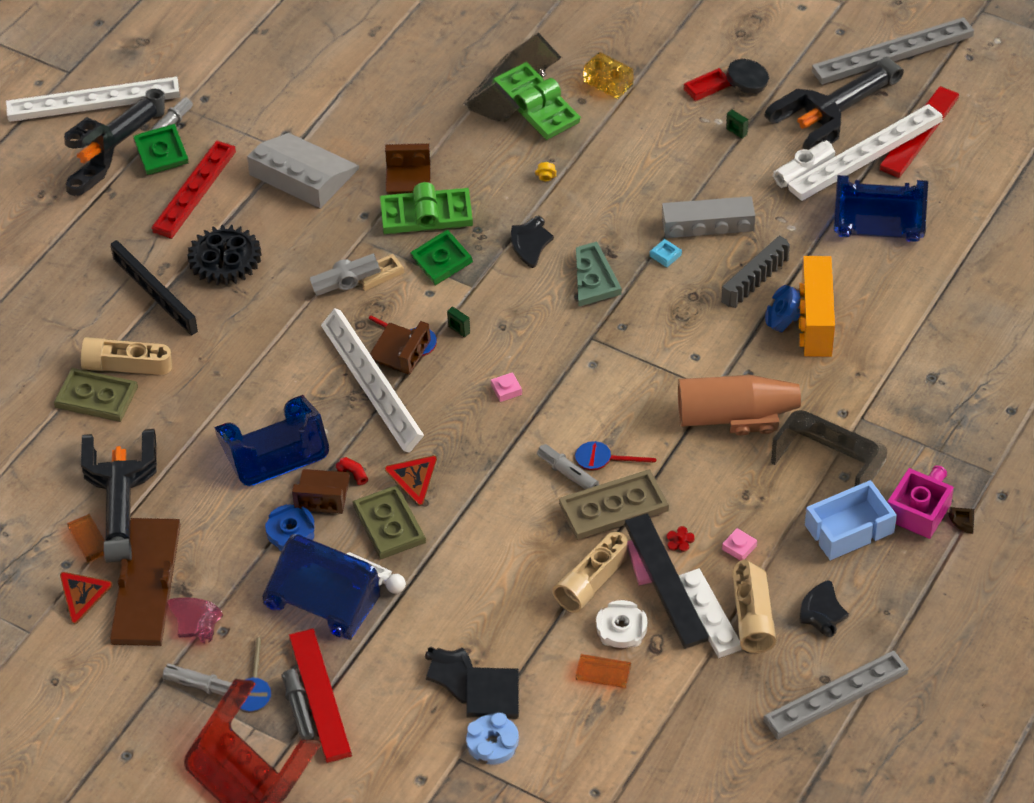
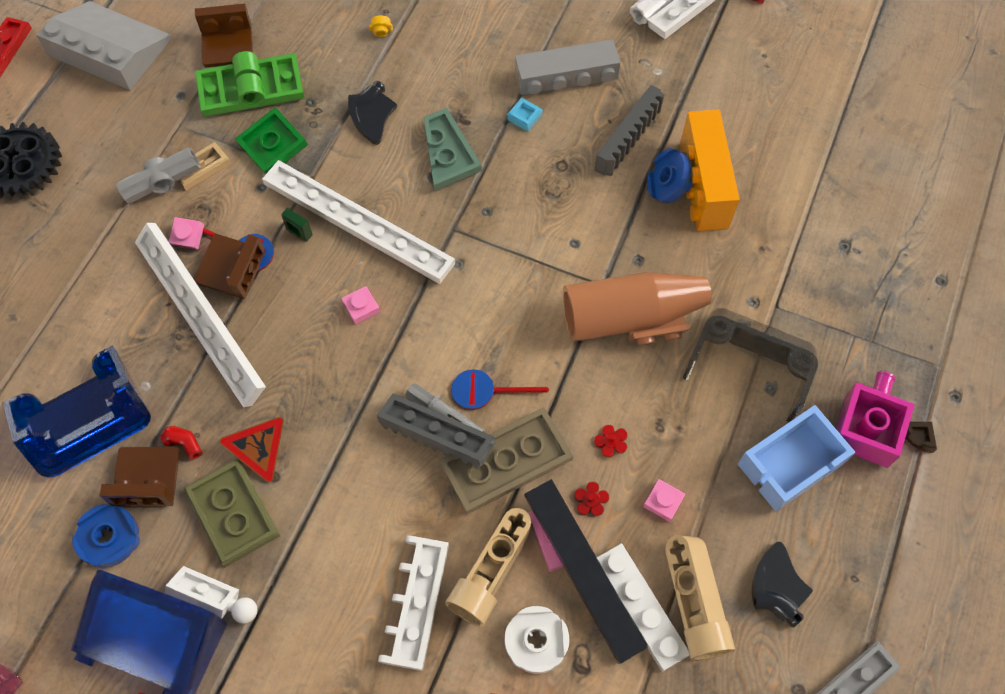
camera: 10 degrees left, 15 degrees up
(365, 321) = (186, 233): none -> bright pink plate
(511, 324) = (359, 222): none -> white plate
(531, 592) = (418, 604): none -> white hinge
(559, 476) = (436, 430): none -> dark grey gear
(703, 501) = (611, 441): none -> red plant
(880, 209) = (756, 43): clear blue windscreen -> none

